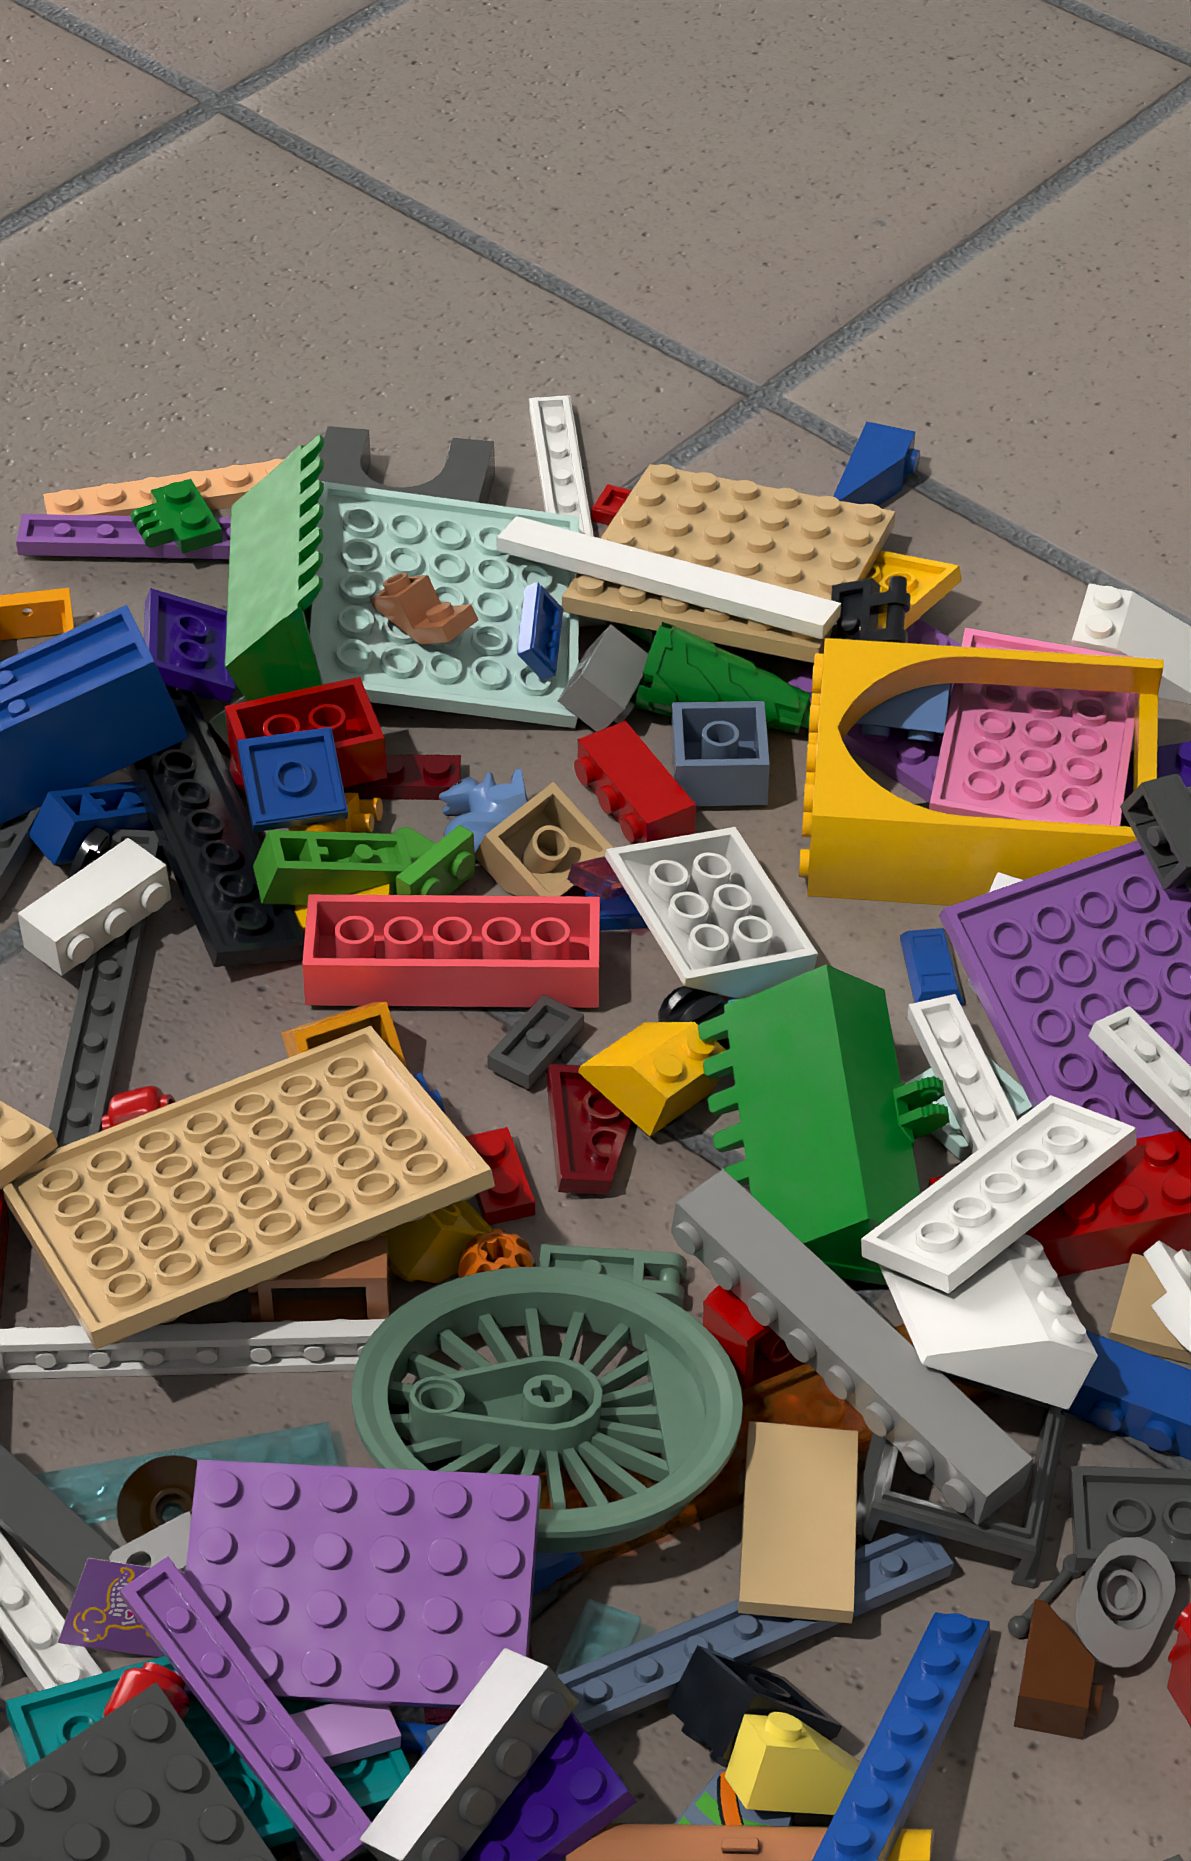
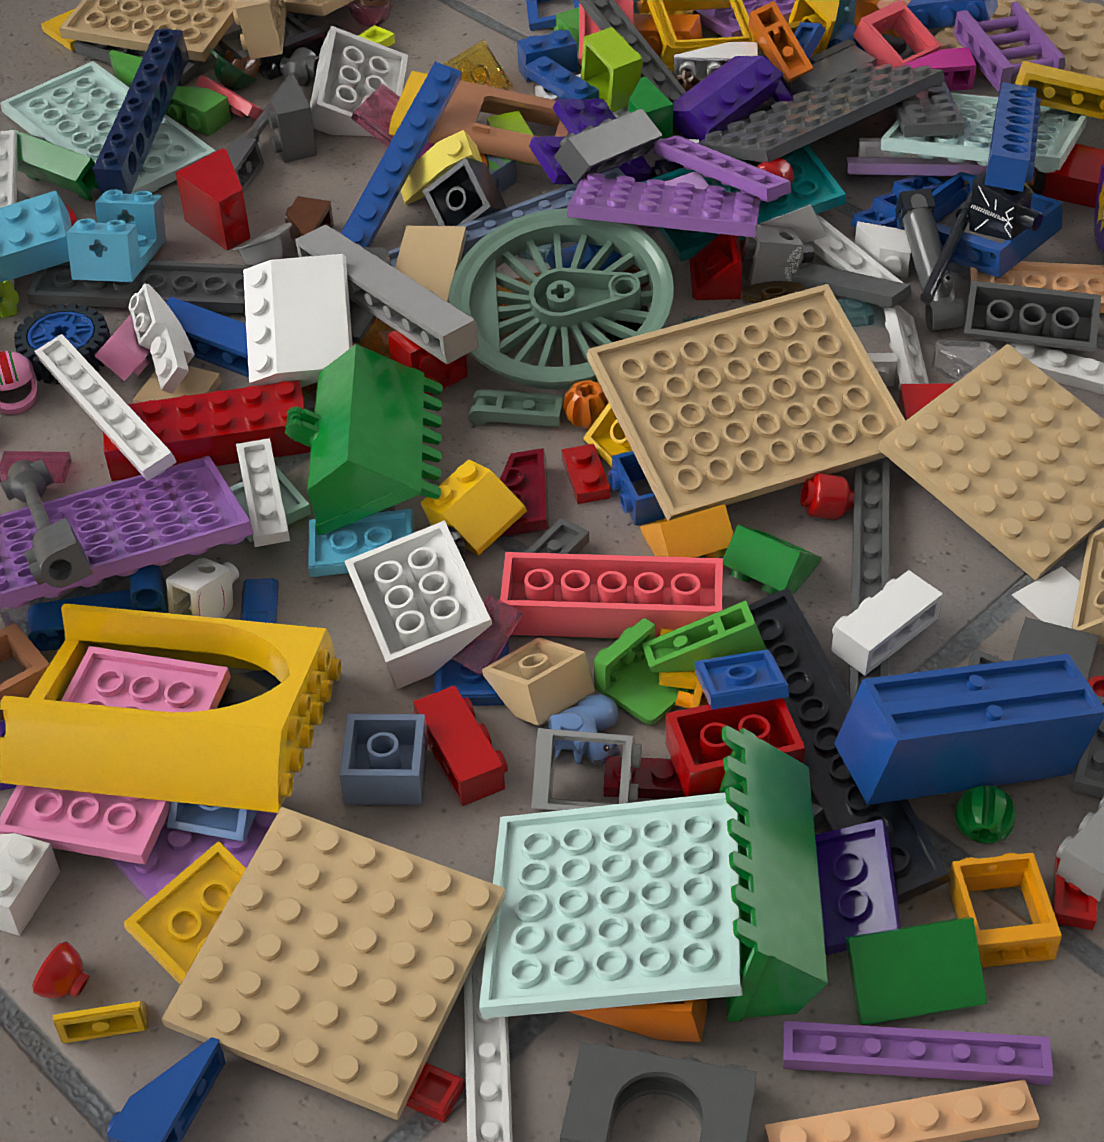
camera: 175 degrees left, 0 degrees up
(137, 580) = (916, 970): none -> green tile
(178, 516) = (887, 1049): green hinge -> none
(229, 1025) = (768, 560): none -> green slope
(417, 610) = (623, 852): nougat slope -> none
(479, 732) = (545, 767): none -> light grey window
(540, 631) = (527, 856): blue plate -> none
(605, 680) = (474, 833): light grey brick -> none
(669, 577) = (409, 885): white tile -> none
(695, 670) = (393, 819): green cone -> none
(860, 608) = (238, 844): black plate -> none
(965, 538) = (101, 1022): none -> yellow slope
(998, 1193) = (266, 373): white plate -> none
(1018, 566) = (61, 973): none -> red brick

